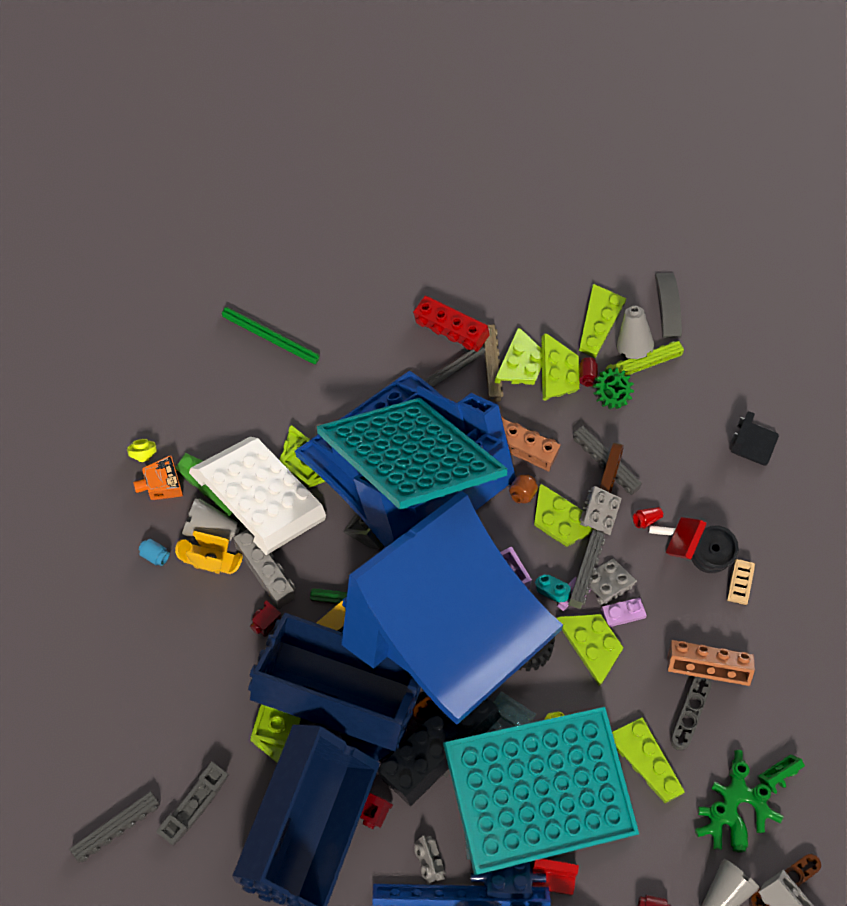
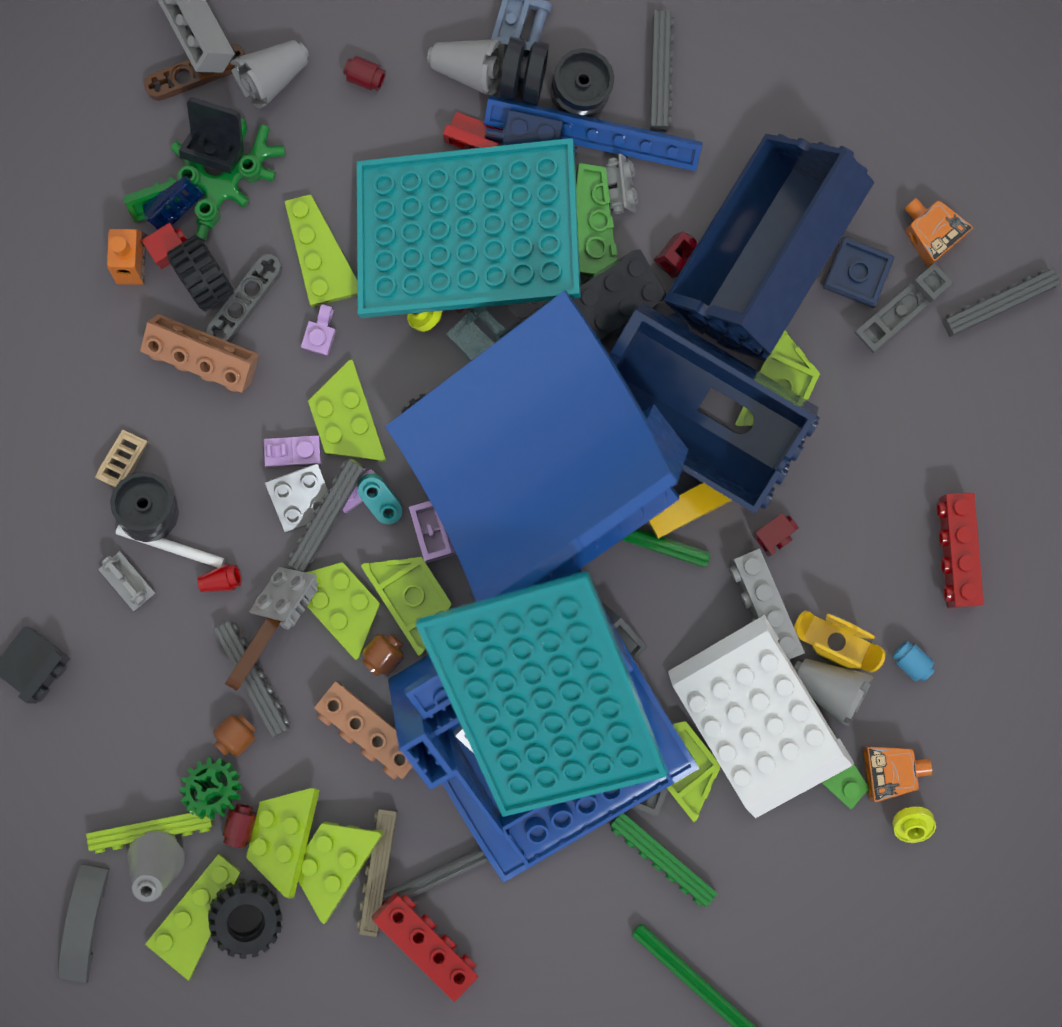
camera: 165 degrees left, 20 degrees up
(128, 632) = (960, 550): none -> red brick
(174, 872) = (934, 229): none -> orange torso
(229, 826) = (858, 272): none -> dark blue plate
(305, 401) = (663, 860): none -> green piece
(446, 824) = (594, 219): none -> bright green wing
(512, 528) = (408, 593): none -> lime wing
(568, 306) = (251, 941): none -> black tyre
(607, 422) = (234, 735): none -> dark orange head
(629, 698) = (319, 335): none -> lavender plate
(686, 538) = (179, 527): red tile -> none
(710, 505) = (126, 580): none -> light grey hinge
(729, 715) = (200, 273): none -> black tyre
(753, 819) = (213, 136): none -> black bracket
(761, 738) = (163, 241): none -> red brick
(768, 766) = (177, 209): none -> clear blue slope
(787, 722) = (126, 253): none -> orange torso

